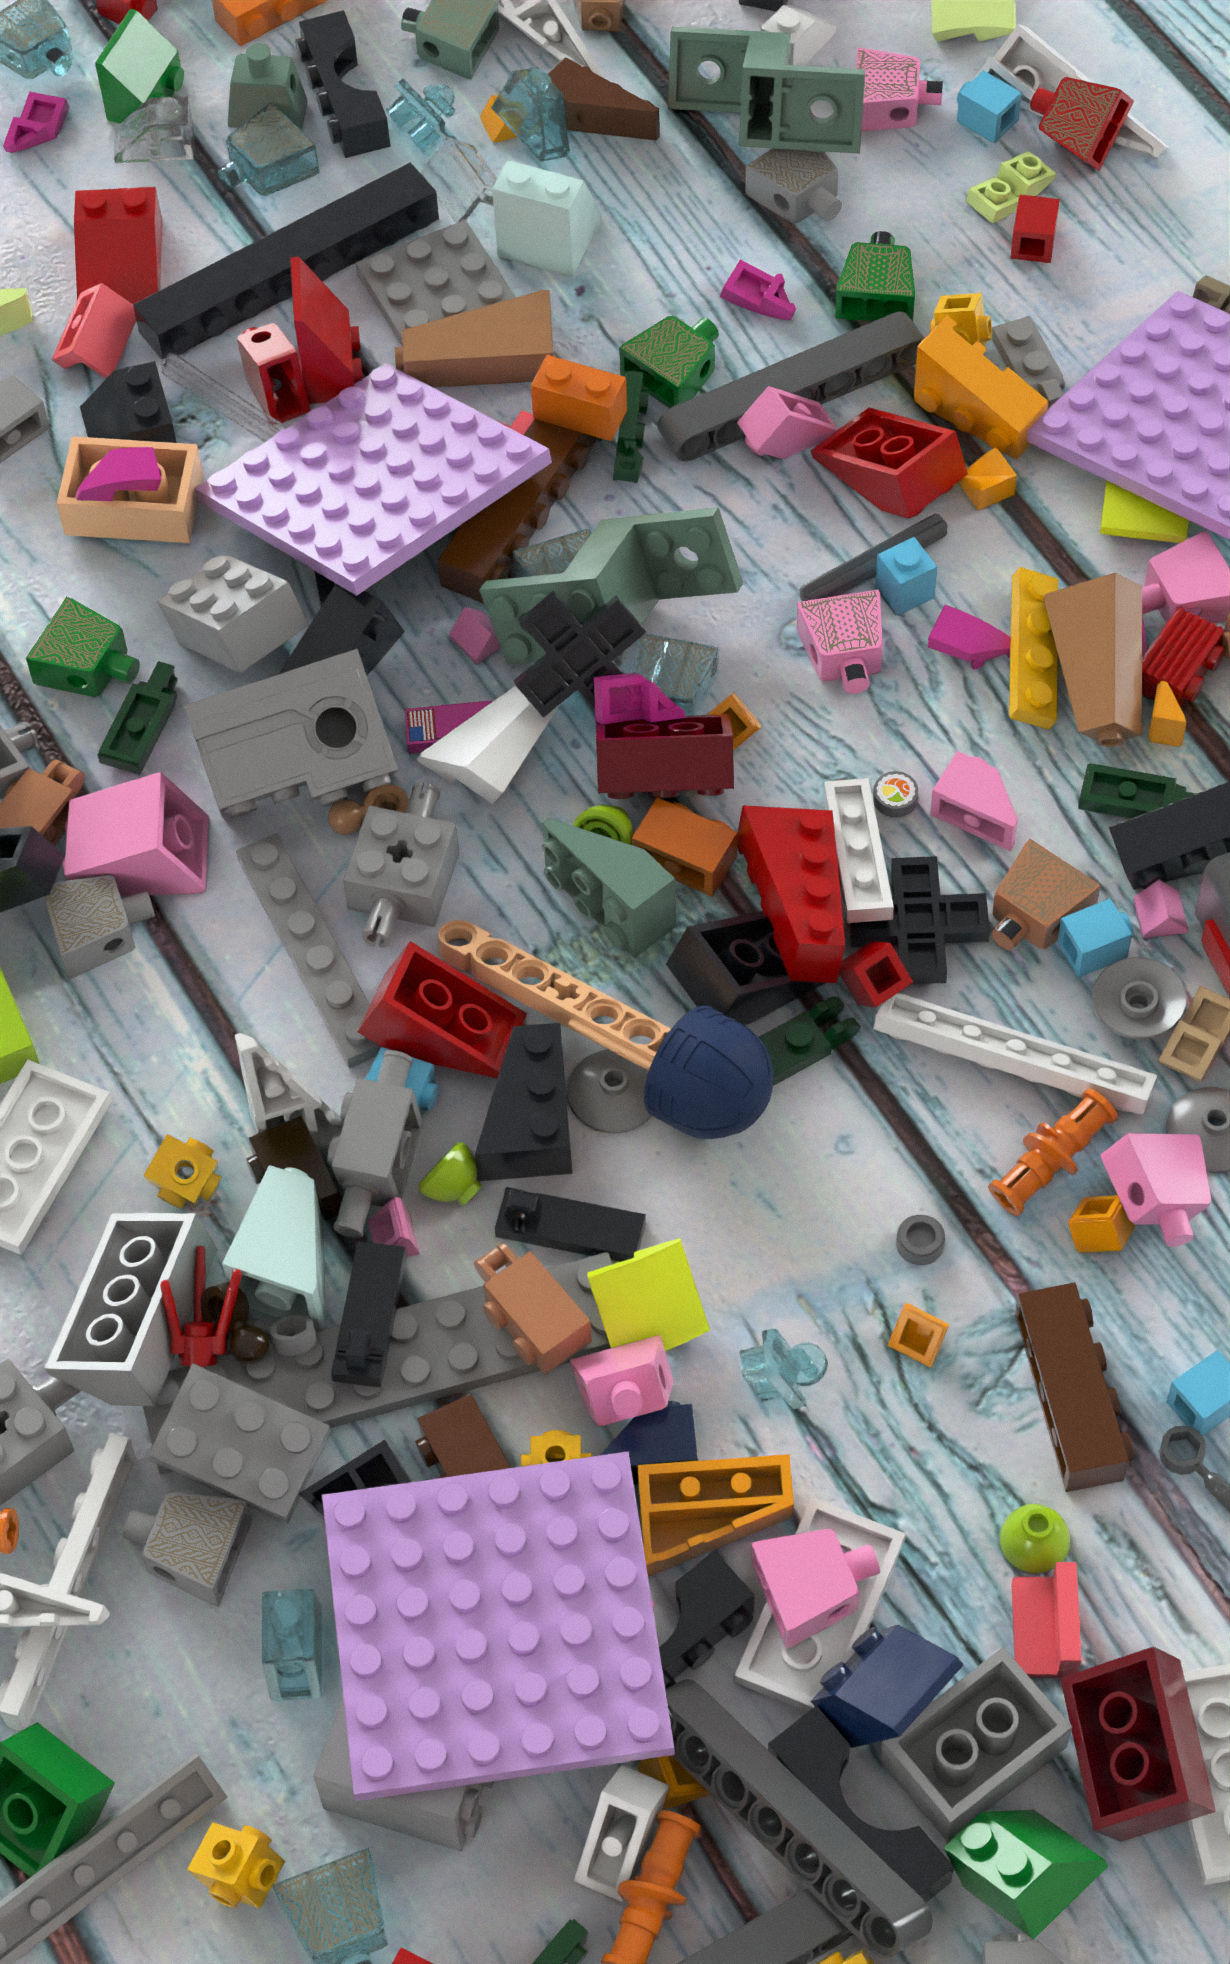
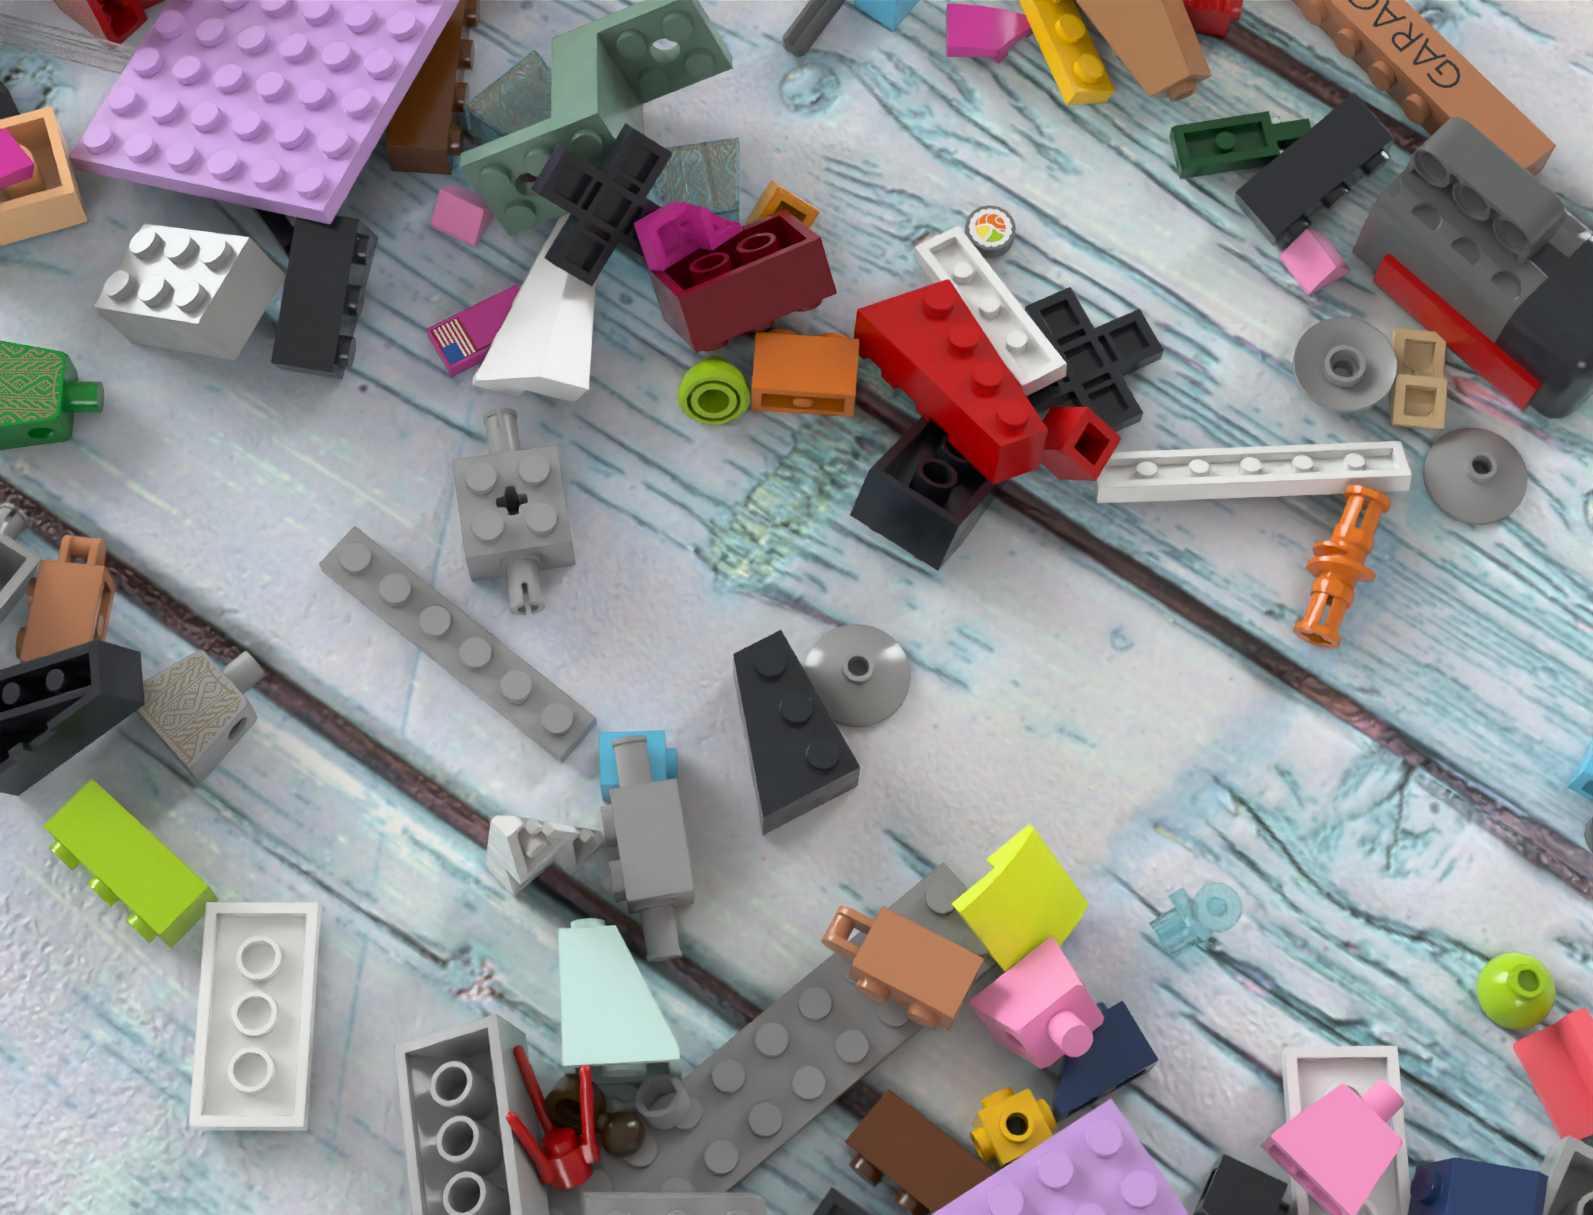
camera: 30 degrees left, 10 degrees up
(140, 721) = (136, 453): dark green hinge -> none
(141, 835) = (203, 591): bright pink slope -> none
(173, 1157) = (428, 963): yellow brick -> none
(292, 732) = (329, 409): light grey piece -> none
(293, 1147) = (557, 897): dark brown arch -> none
(348, 816) = (424, 476): medium nougat plate -> none
(369, 1314) = (732, 1043): black hinge -> none
(394, 1226) = (704, 934): bright pink slope -> none
(440, 1015) = (642, 670): red slope -> none
(452, 1177) = (738, 845): lime brick -> none
(569, 1225) = (886, 846): black hinge -> none
(612, 884) = (753, 449): sand green slope -> none
(703, 1073) = (970, 629): piece -> none
(709, 1504) = (1199, 1098): light orange wedge -> none
(802, 1043) = (1016, 556): dark green hinge -> none
(843, 637) = (857, 77): bright pink torso -> none
(918, 1335) = (1302, 821): light orange slope -> none
(920, 1239) = (1249, 713): flat silver tile -> none
(975, 800) = (1081, 209): bright pink slope -> none
(1036, 897) = (1194, 293): nougat torso -> none
(1072, 1387) = (1480, 813): reddish brown brick -> none
(1095, 937) = (1269, 315): medium azure brick -> none
(1100, 1225) = (1421, 623): light orange slope -> none
(1160, 1181) = (1467, 559): bright pink torso -> none
(1167, 719) = (1224, 46): light orange slope -> none

